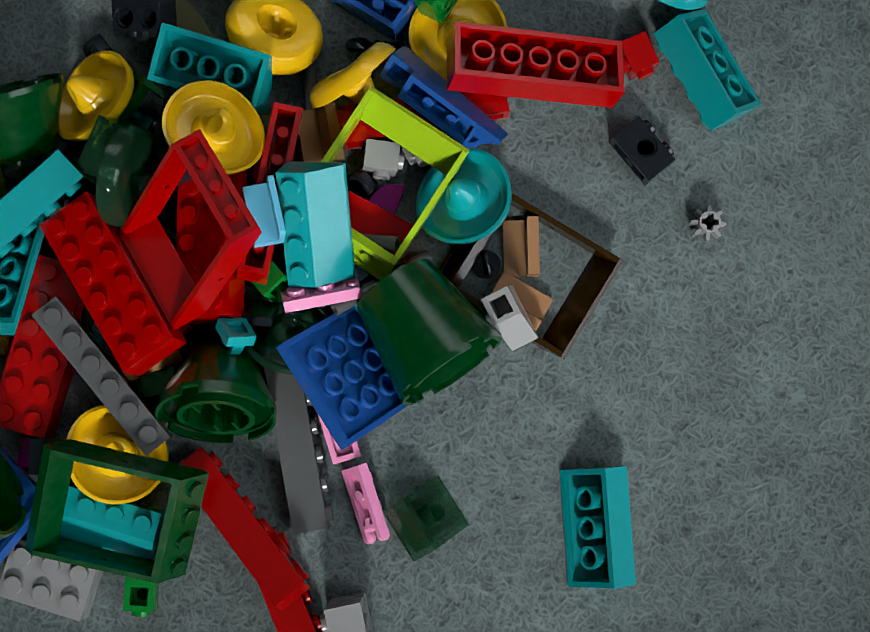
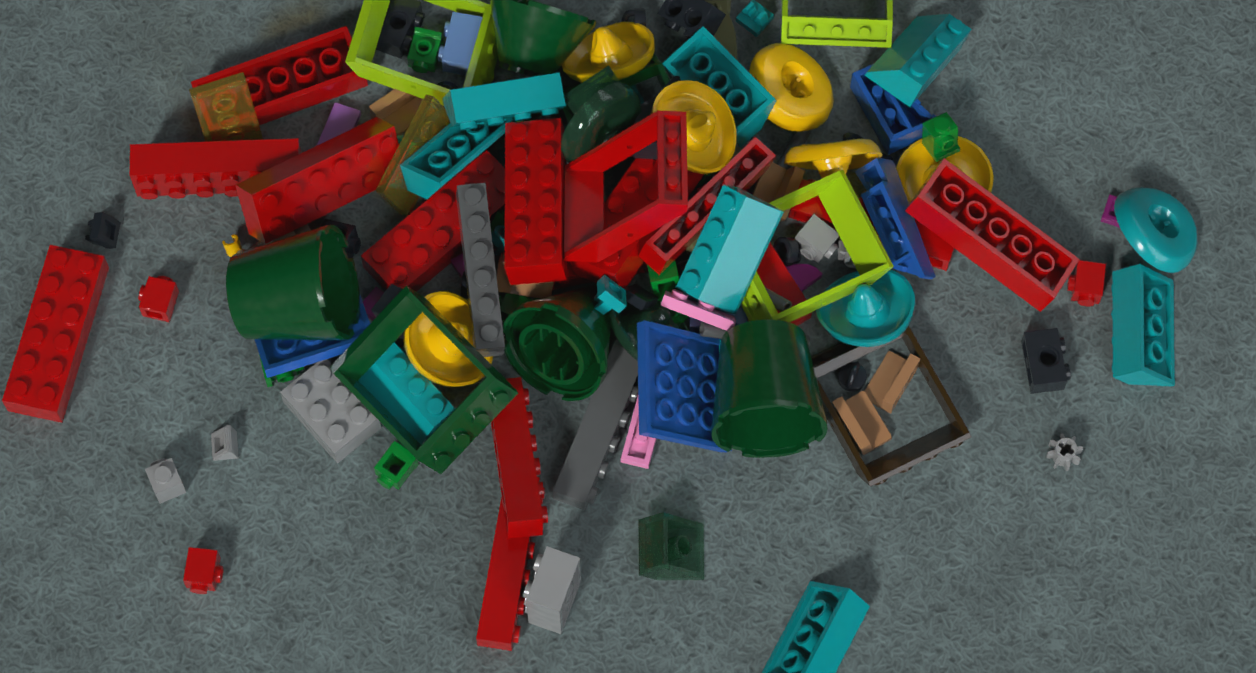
camera: 30 degrees right, 15 degrees down
(265, 208) = (692, 223): medium azure panel -> none
(366, 503) = (628, 506): bright pink hinge -> none
(509, 317) = (844, 419): light grey slope -> none

